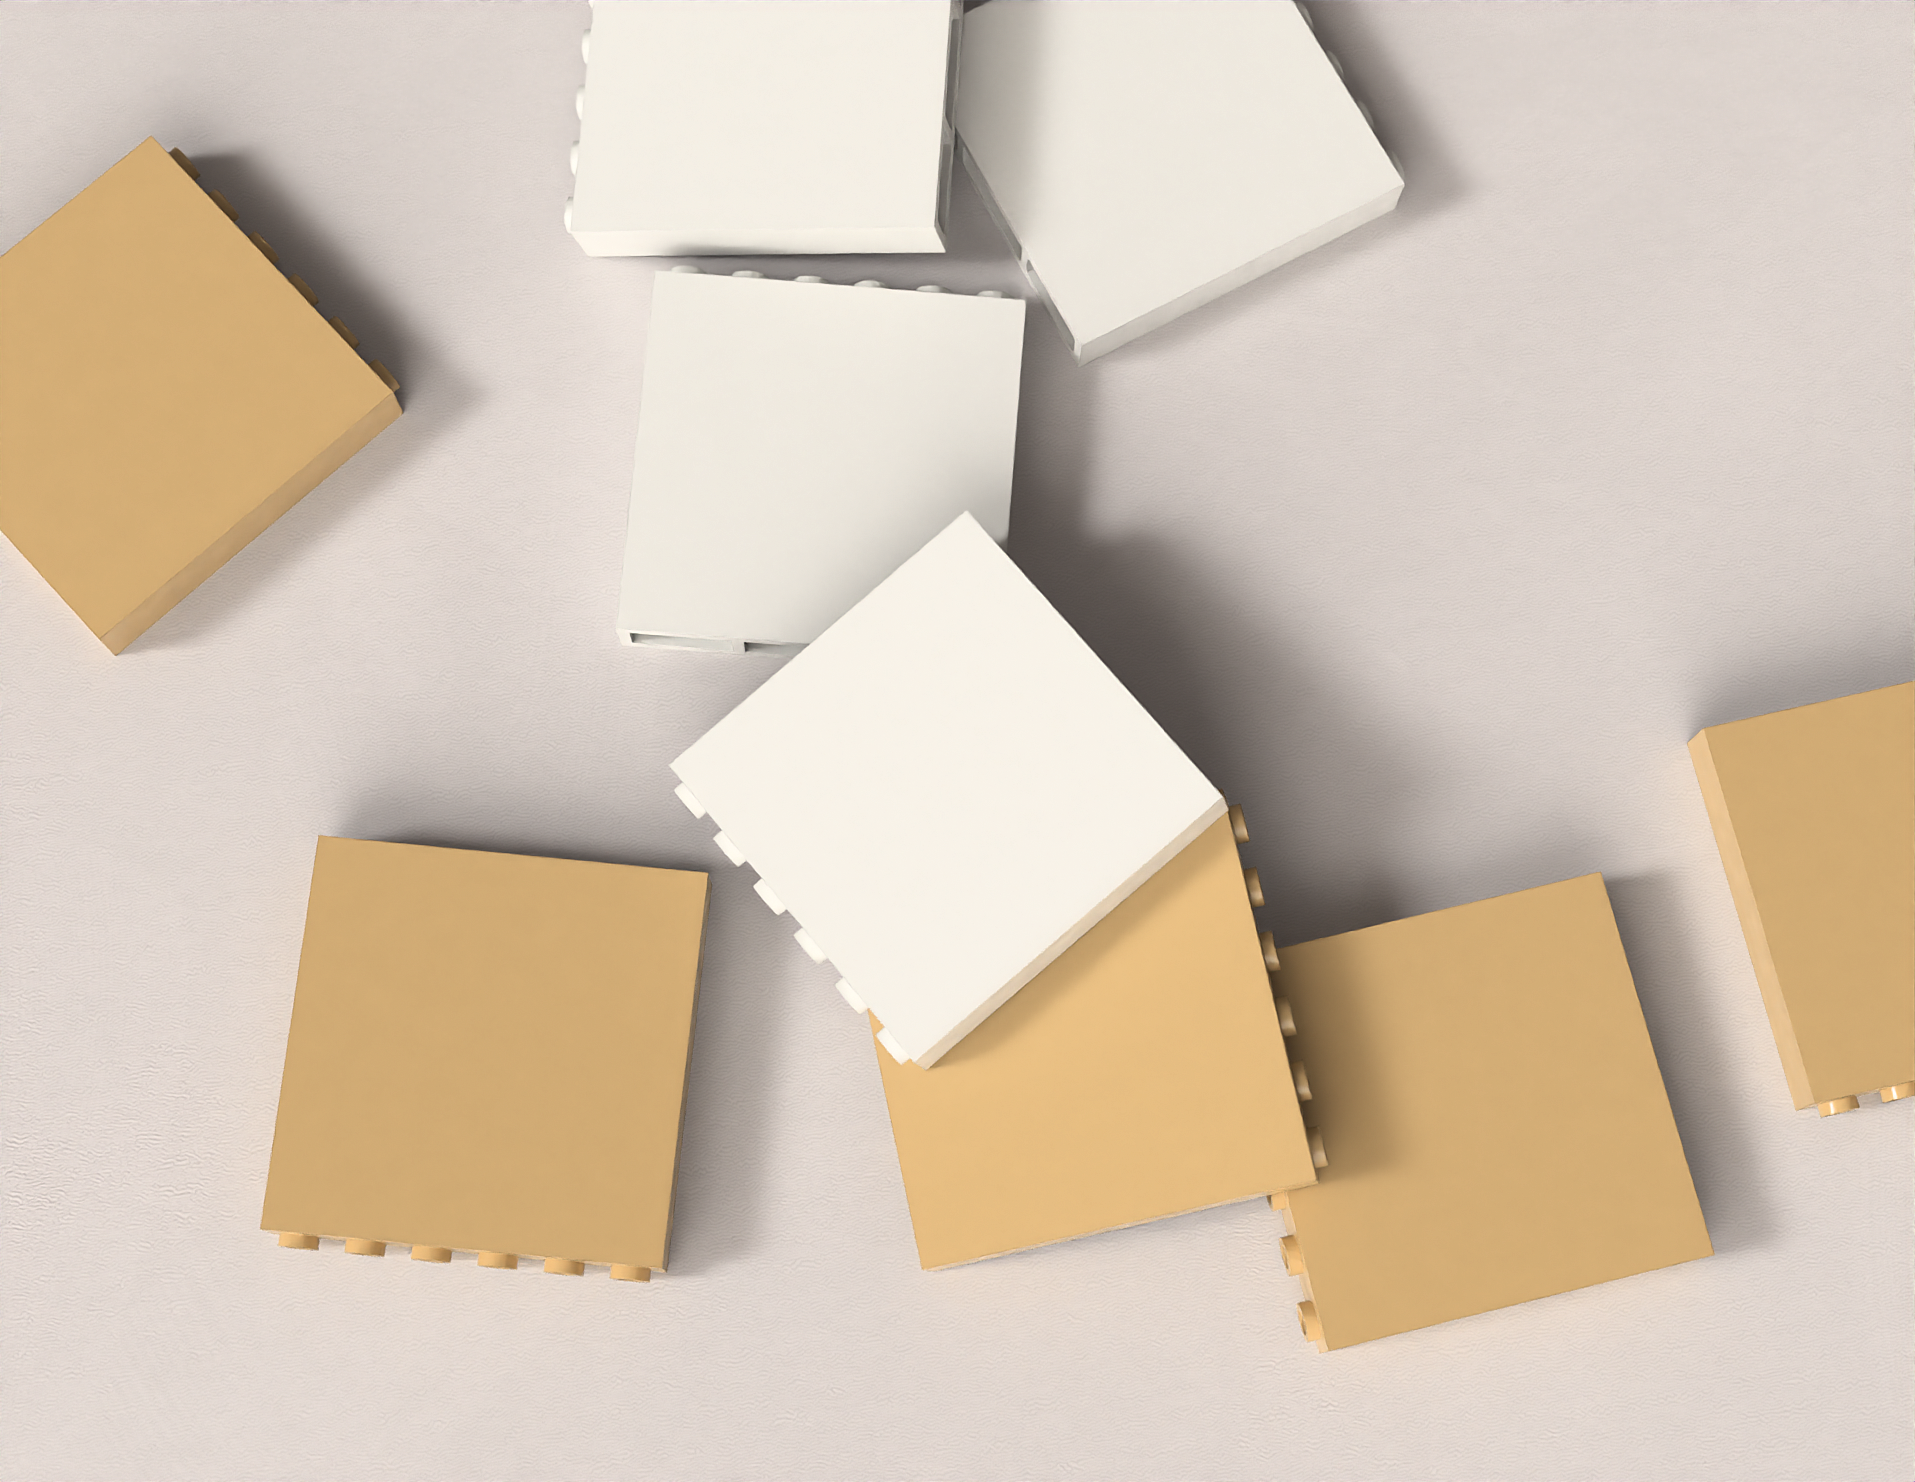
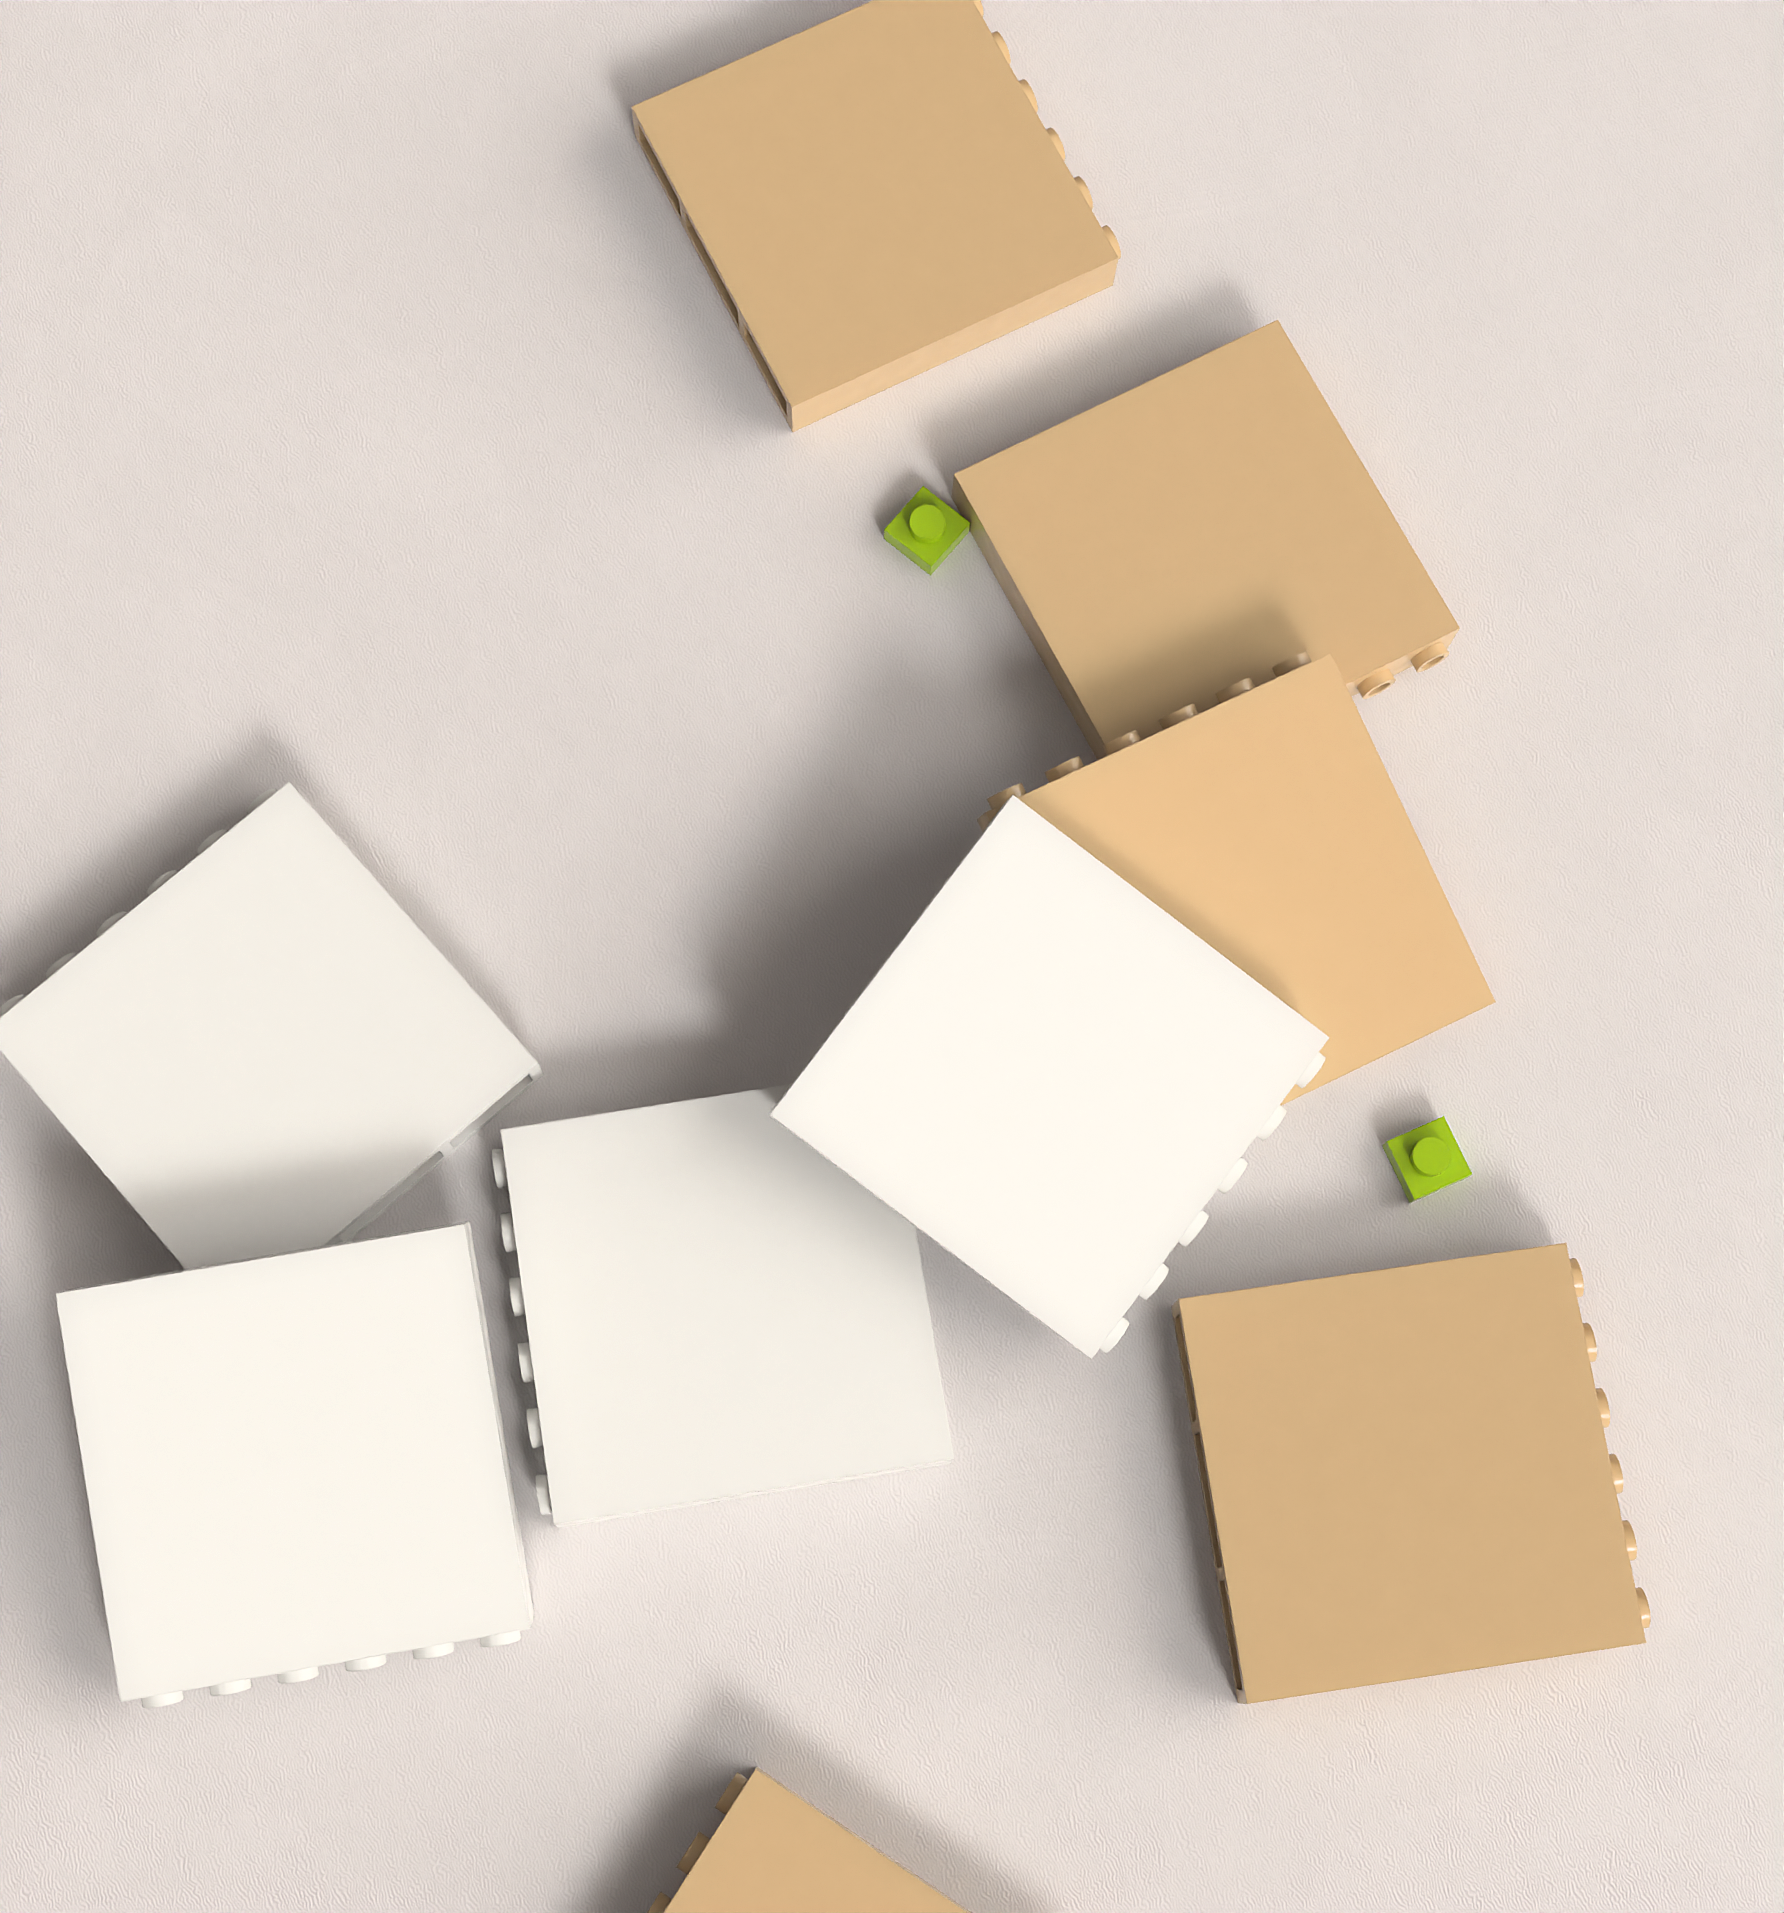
camera: 105 degrees left, 0 degrees up
(788, 1170) = (1426, 1159): none -> lime plate
(1552, 845) = (926, 530): none -> lime plate

